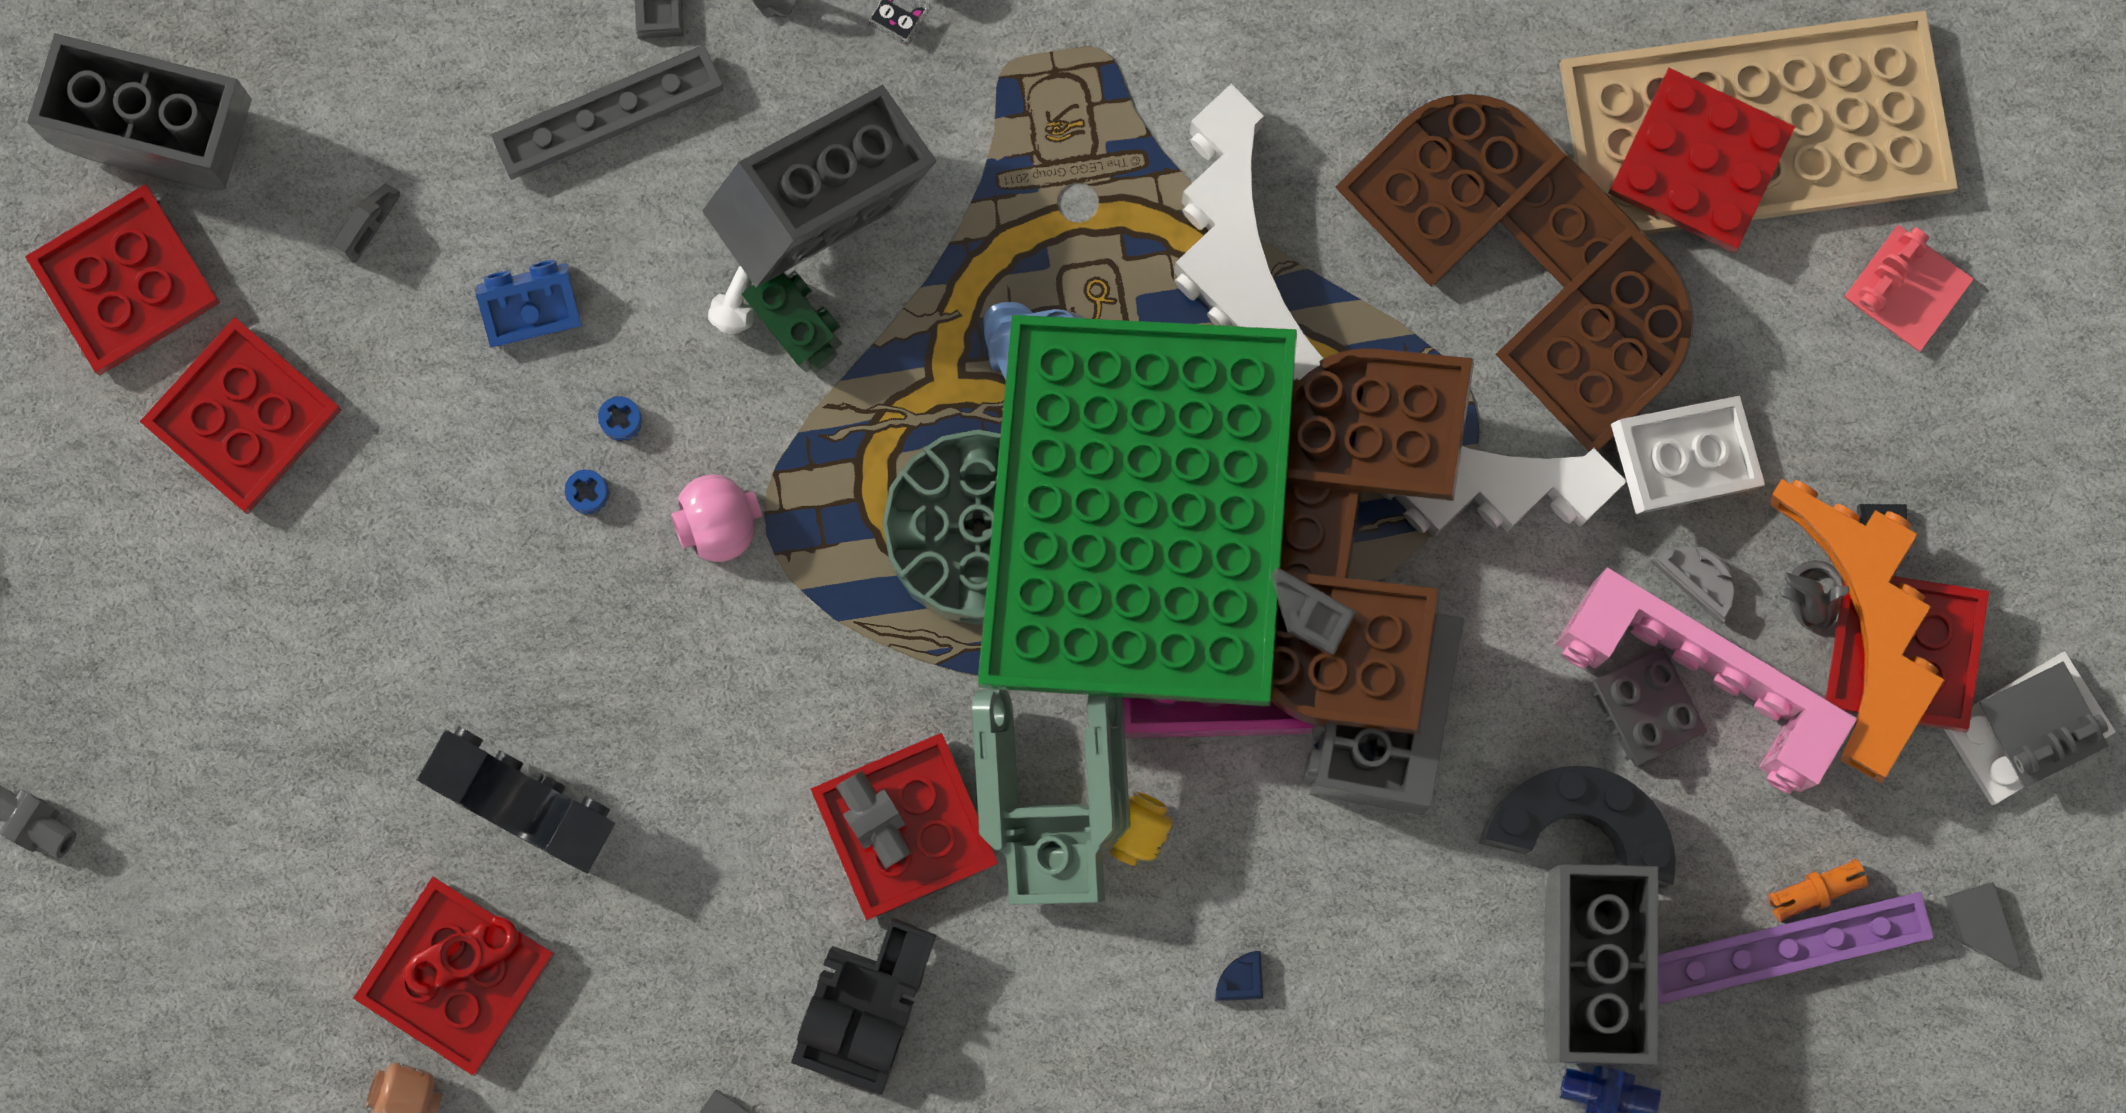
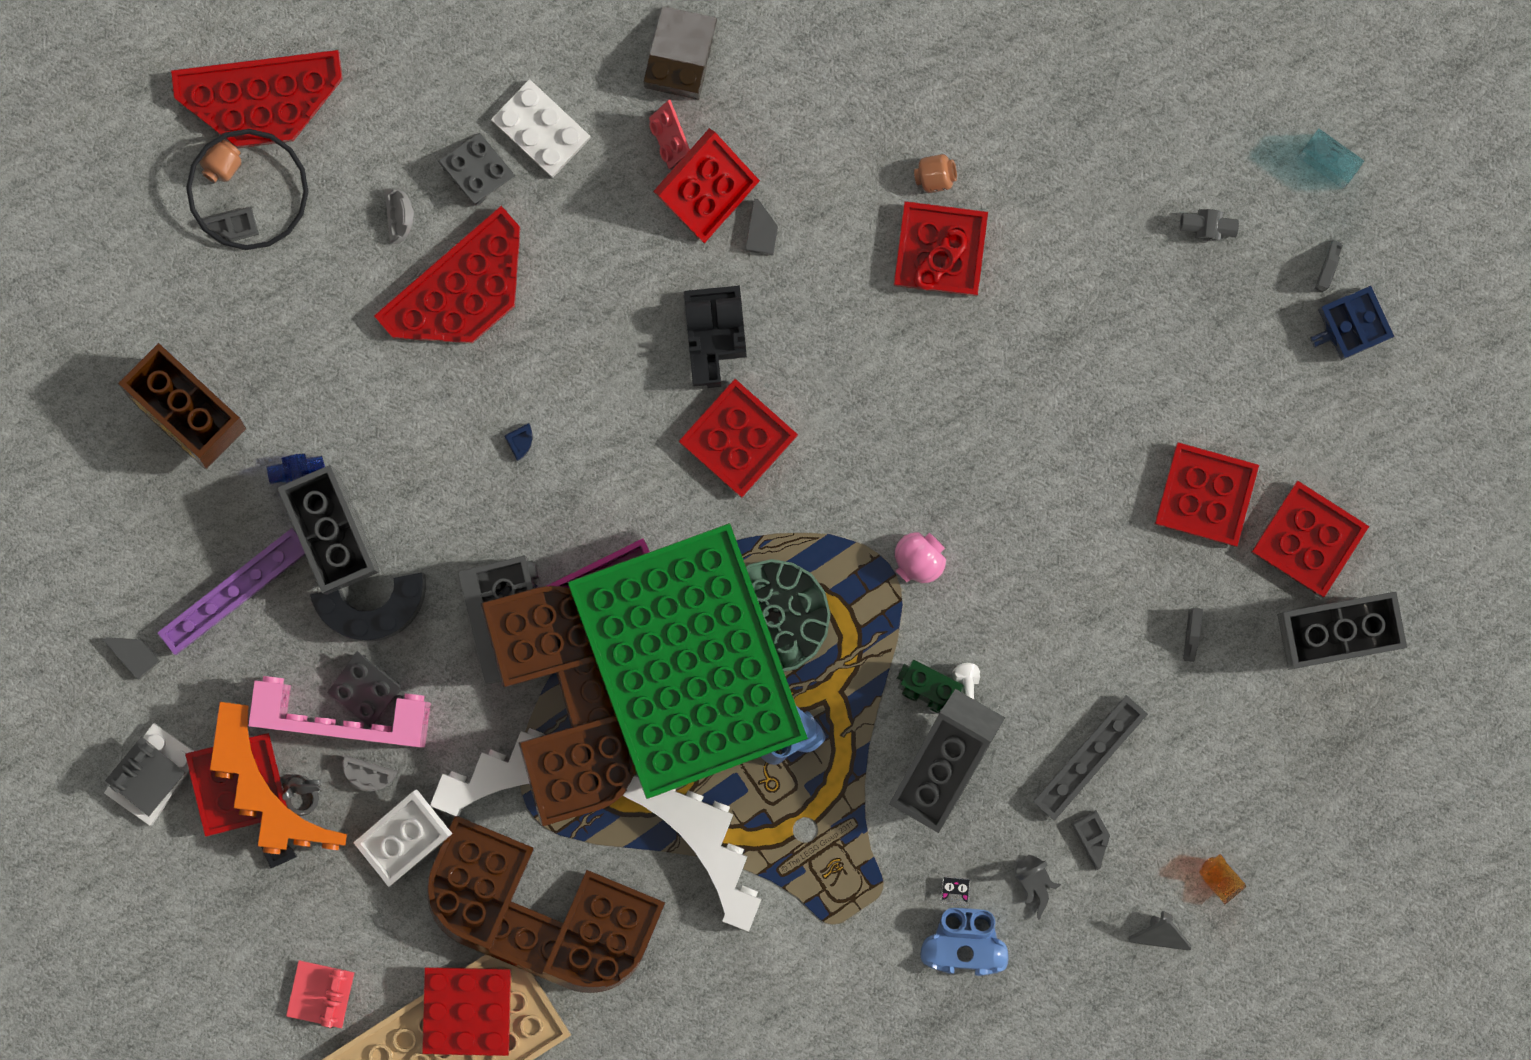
camera: 160 degrees right, 5 degrees up
(515, 801) = (948, 354): black brick -> none
(527, 303) = (1081, 629): blue bracket -> none
(586, 505) = (990, 545): blue bush -> none
(617, 431) = (1008, 586): blue bush -> none
(874, 819) = (755, 432): dark grey axle -> none
(1051, 848) = (652, 462): sand green plate -> none
(1147, 830) = (612, 494): yellow head -> none
(1311, 613) = (567, 641): dark grey tile -> none
(1817, 890) = (230, 631): orange pin -> none

